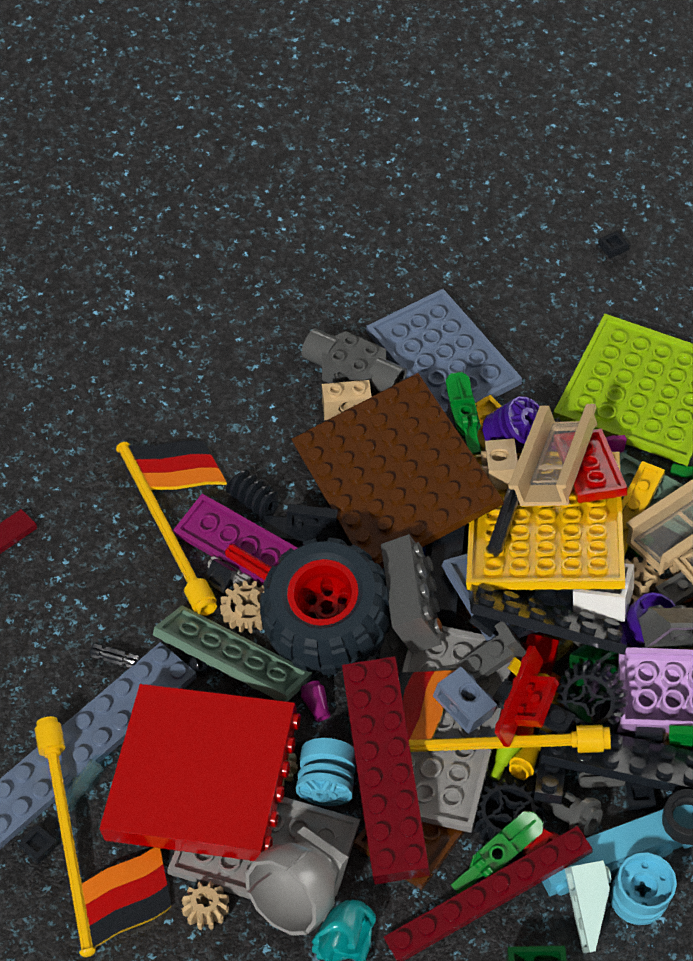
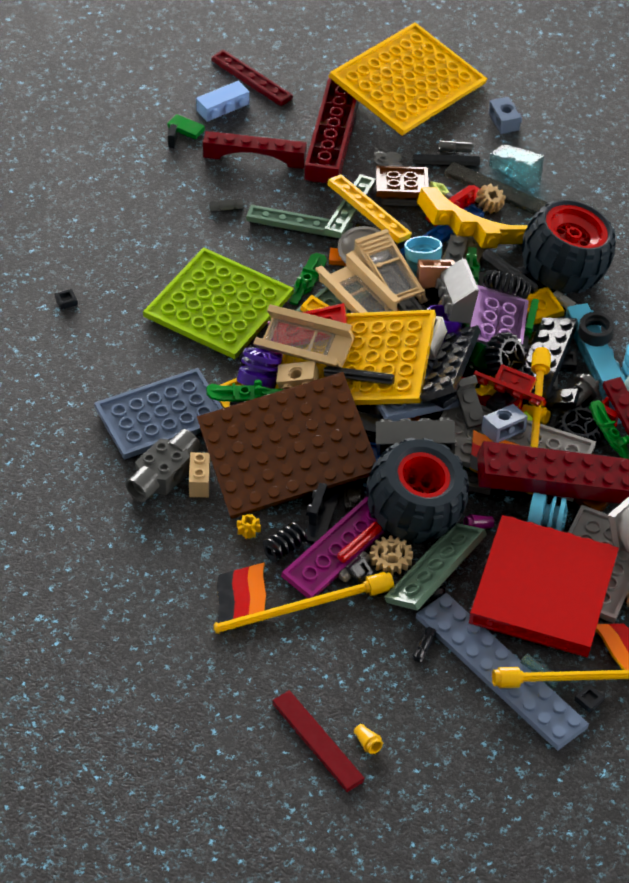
camera: 85 degrees left, 5 degrees down
(275, 457) = (248, 526): none -> yellow gear

